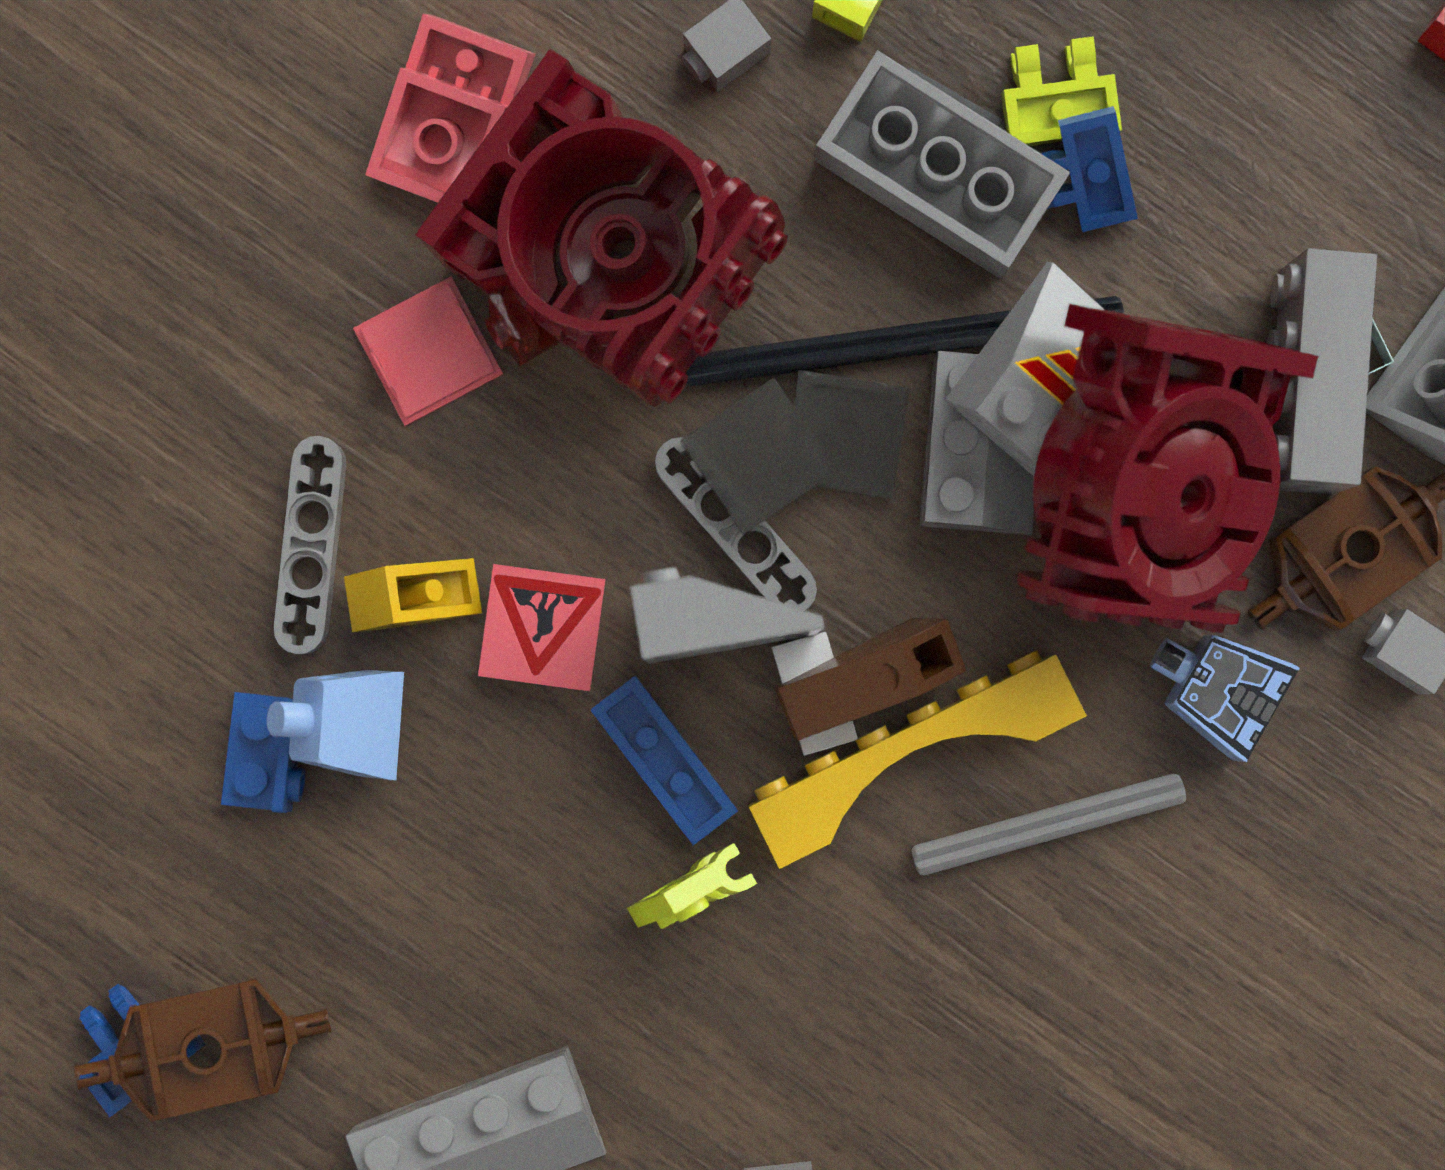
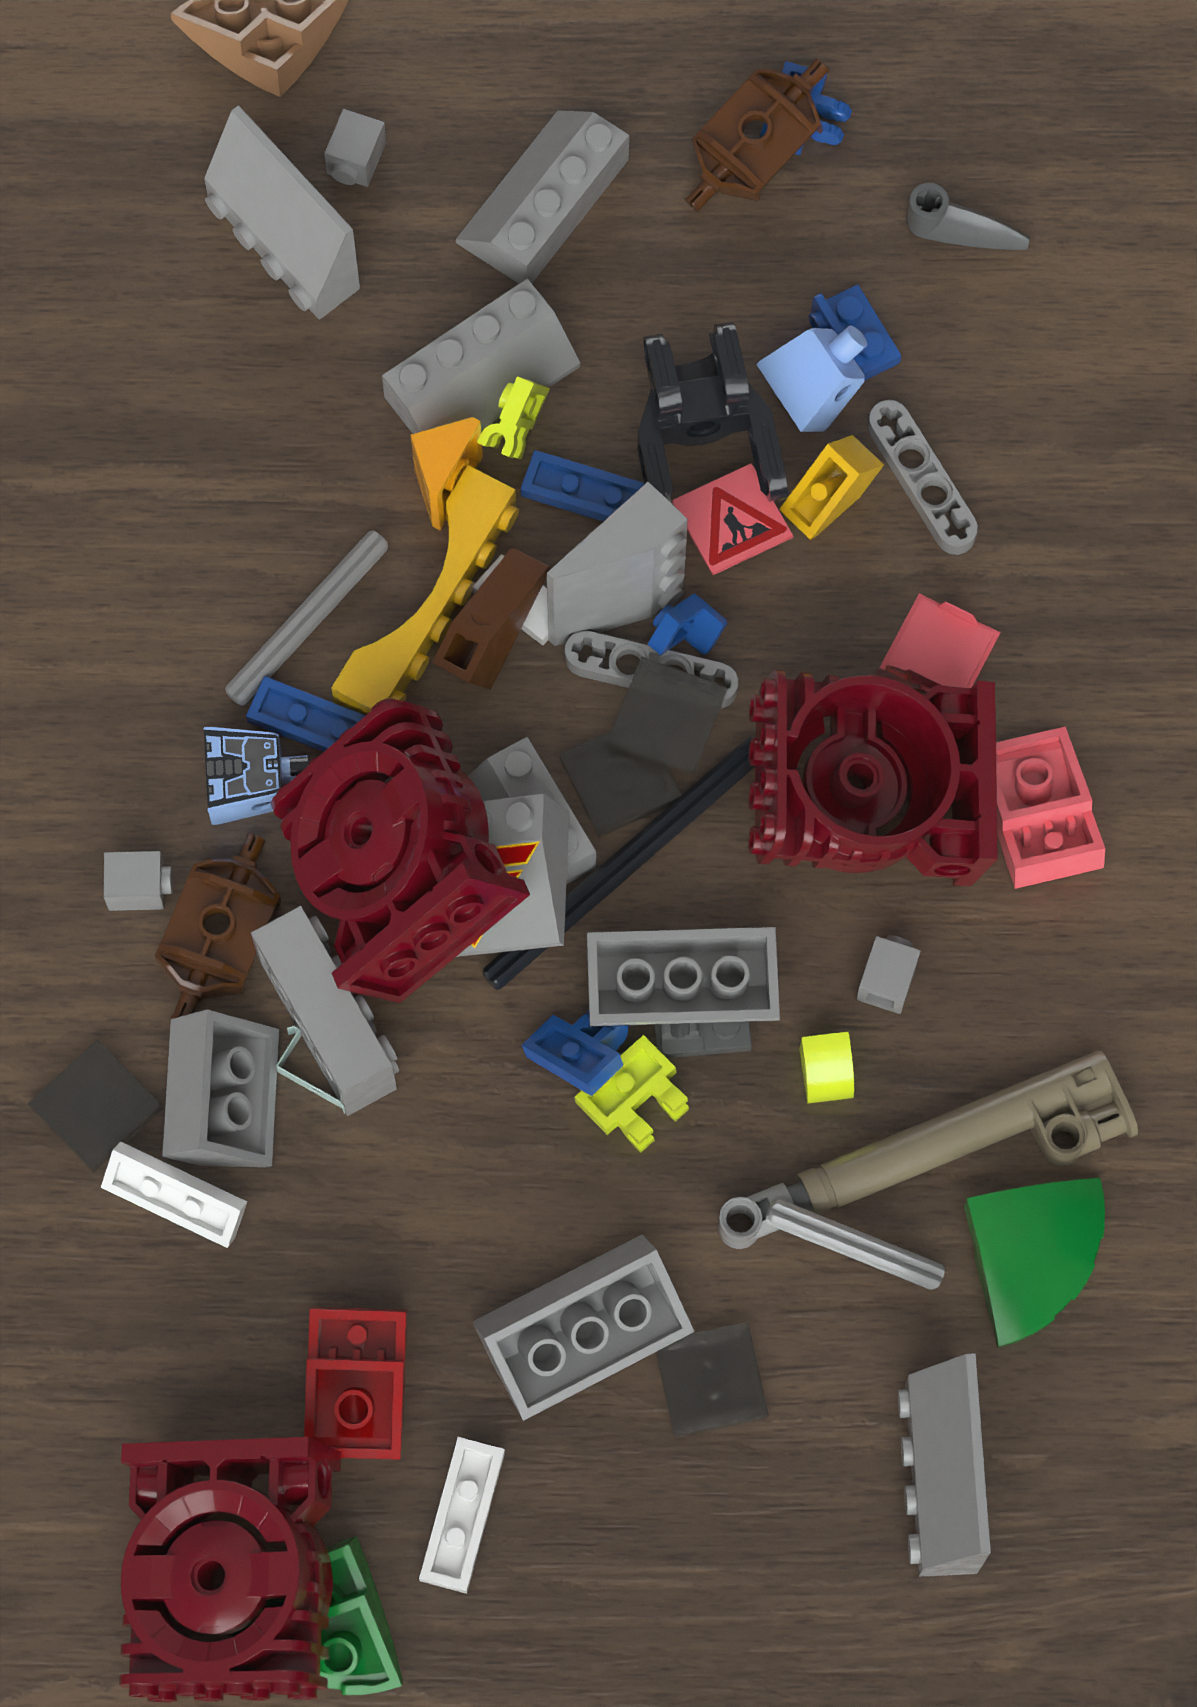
camera: 145 degrees right, 15 degrees down
(61, 801) = (958, 223): none -> dark grey piece
(485, 782) = (702, 405): none -> black piece
(659, 544) = (689, 621): none -> blue bracket
(687, 979) = (474, 361): none -> light grey slope
(808, 886) = (441, 459): none -> light orange slope
(1116, 698) = (299, 715): none -> blue plate

